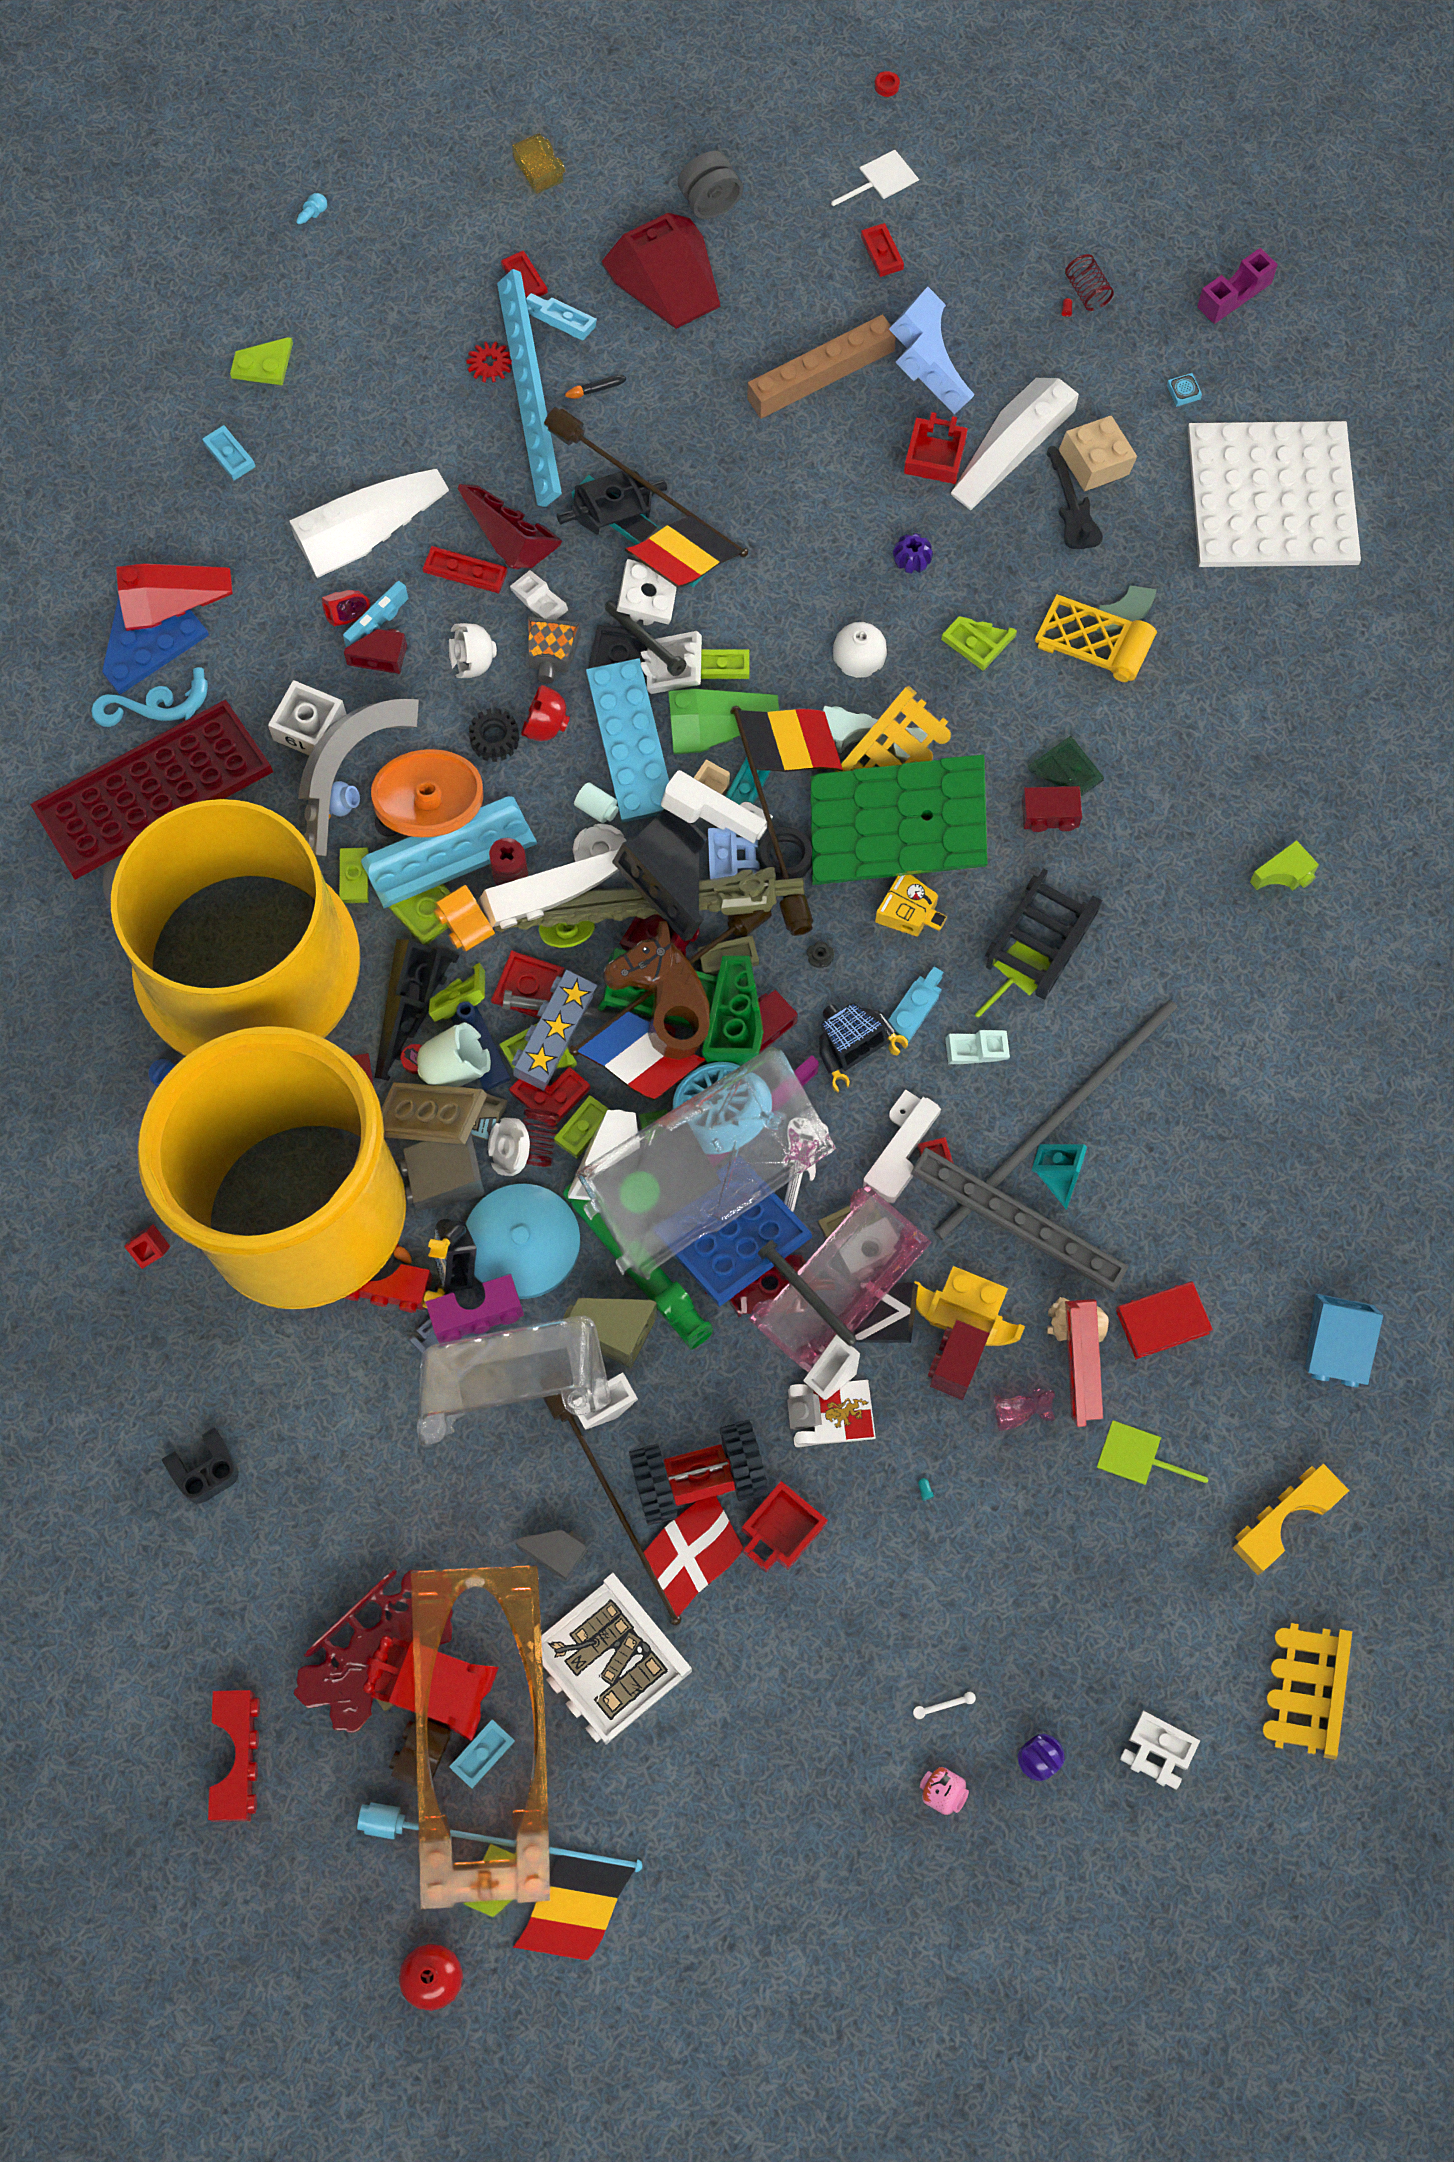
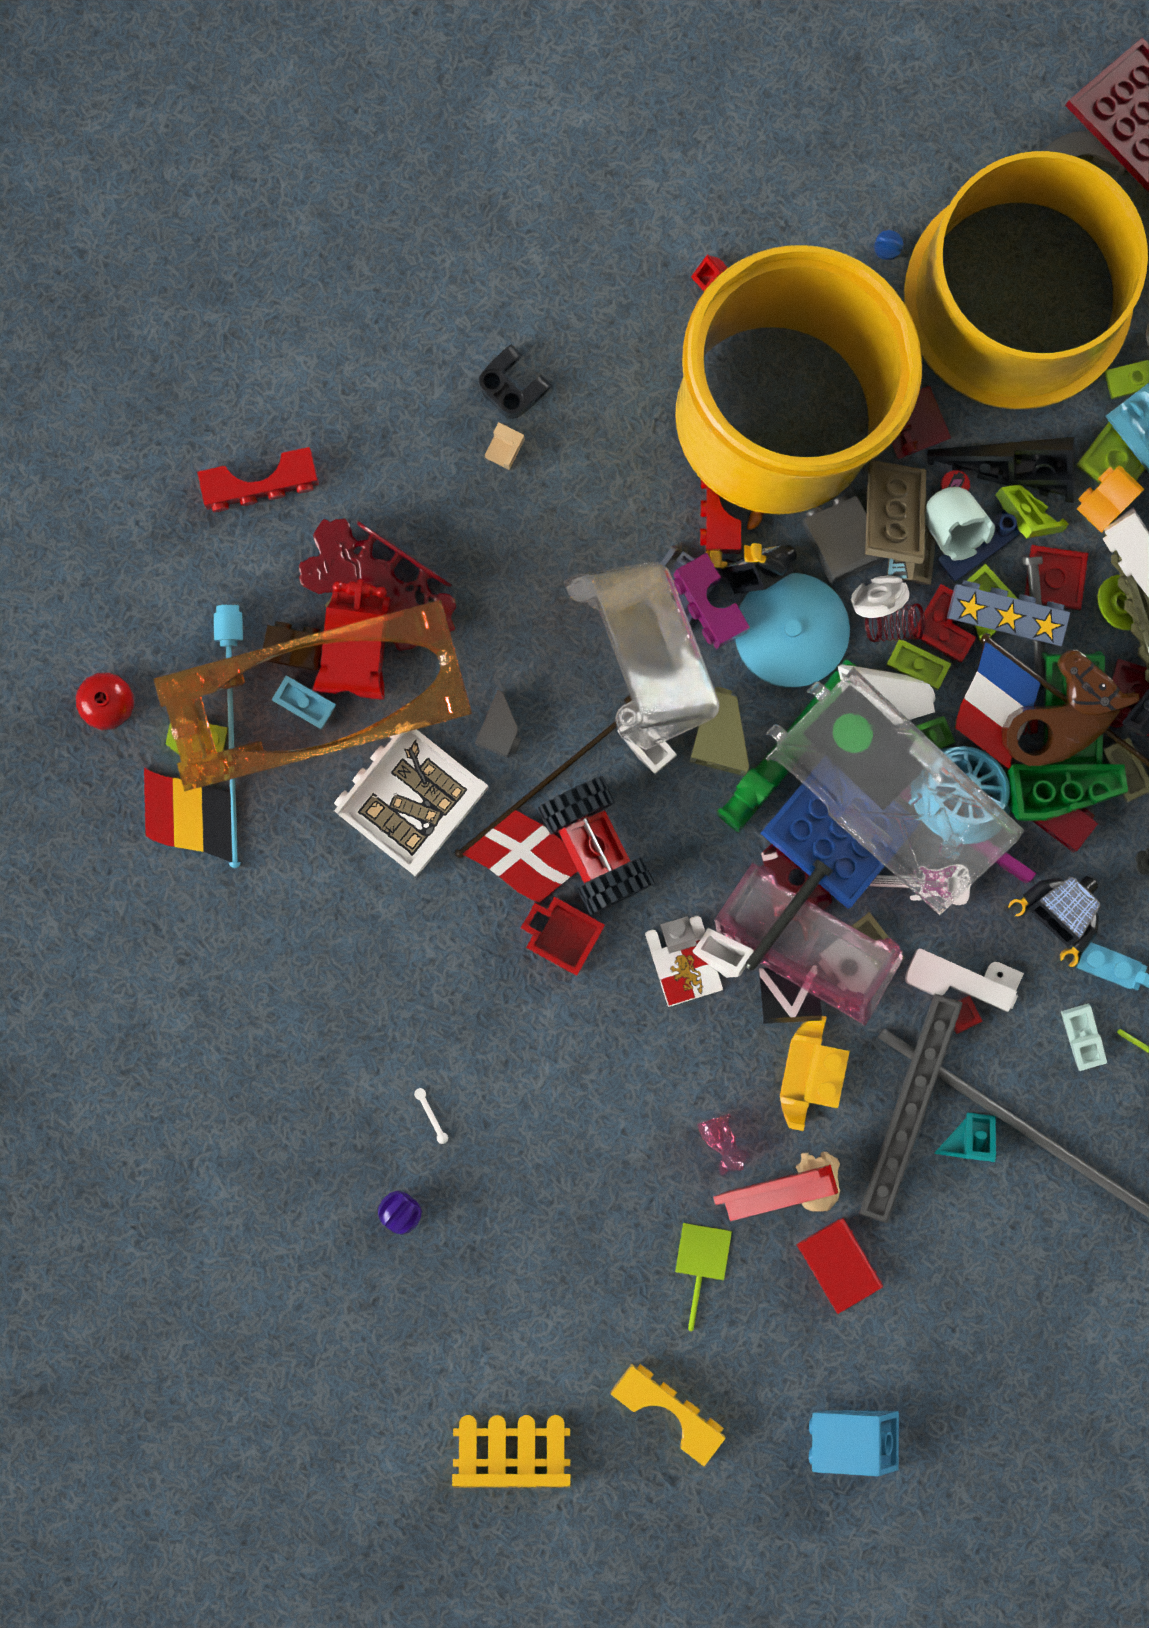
camera: 80 degrees right, 15 degrees up
(264, 1488) = (504, 446): none -> tan panel
(925, 1489) = (628, 1063): teal piece -> none
(944, 1791) = (352, 1128): bright pink head -> none
(960, 1356) = (756, 1072): dark red brick -> none
(1164, 1741) = (437, 1323): white plate -> none

